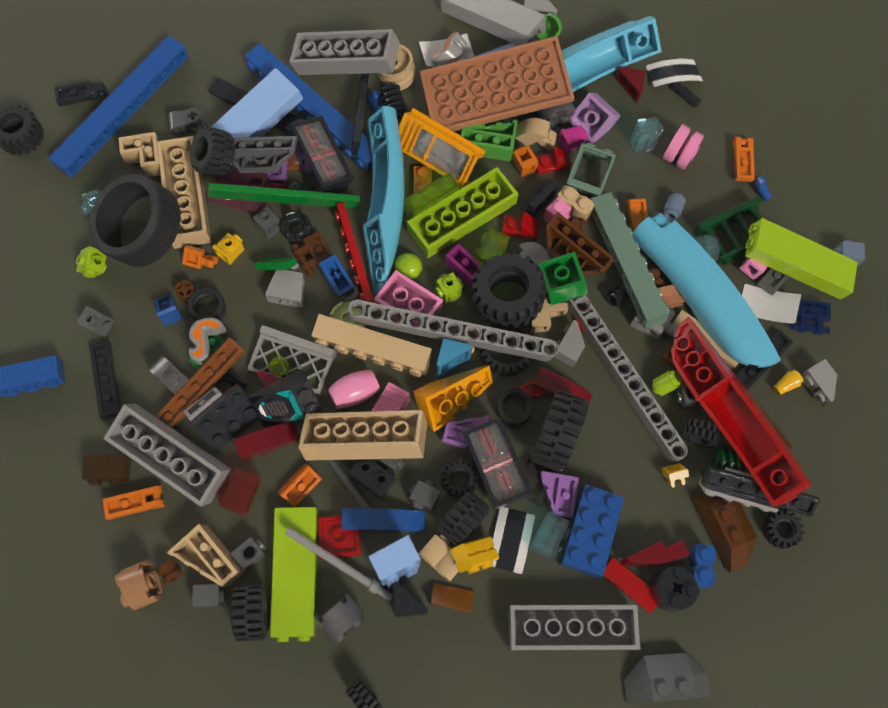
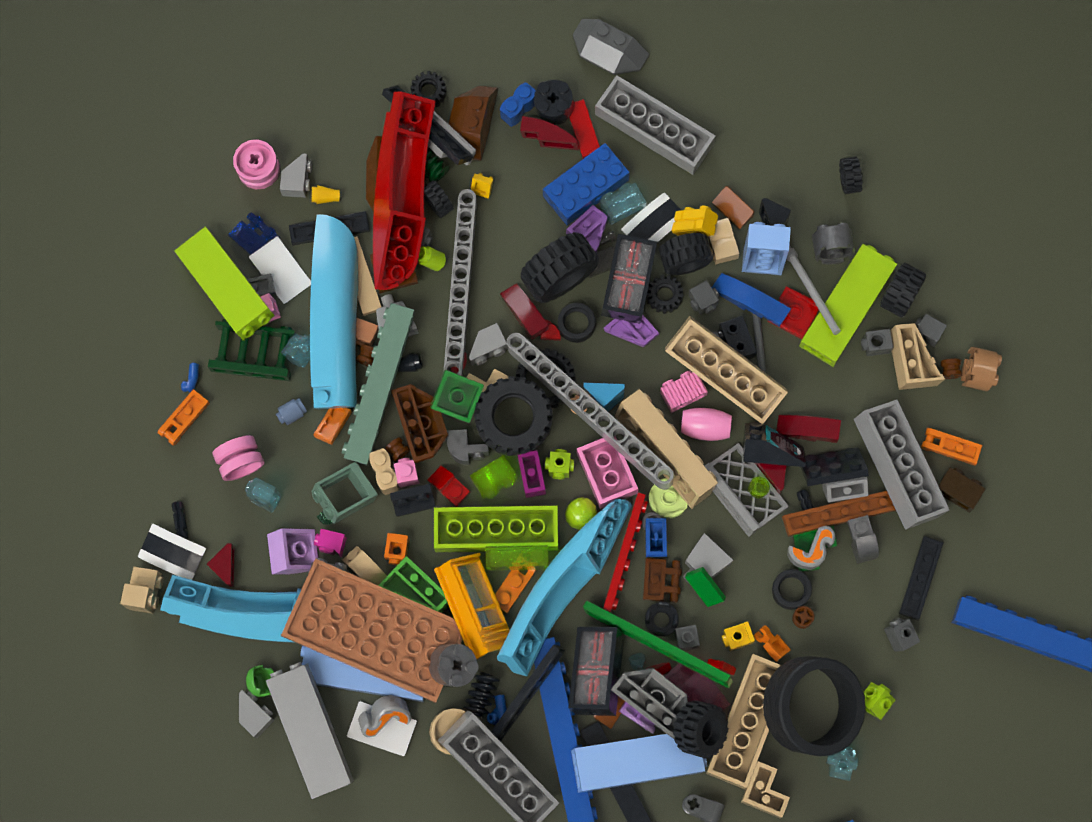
camera: 135 degrees left, 5 degrees up
(167, 310) = (829, 610): blue slope -> none
(228, 219) = (723, 666): none -> red tile
(239, 492) = (856, 396): clear red brick -> none
(299, 485) = (803, 376): orange slope -> none
(424, 92) = (442, 662): none -> flat silver brick
(449, 395) = (633, 369): light orange wedge -> none
(553, 162) = (368, 532): red slope -> none
(671, 32) = (142, 590): none -> tan brick
(852, 250) = (169, 266): sand blue brick -> none
(860, 370) = (256, 164): none -> bright pink wheel

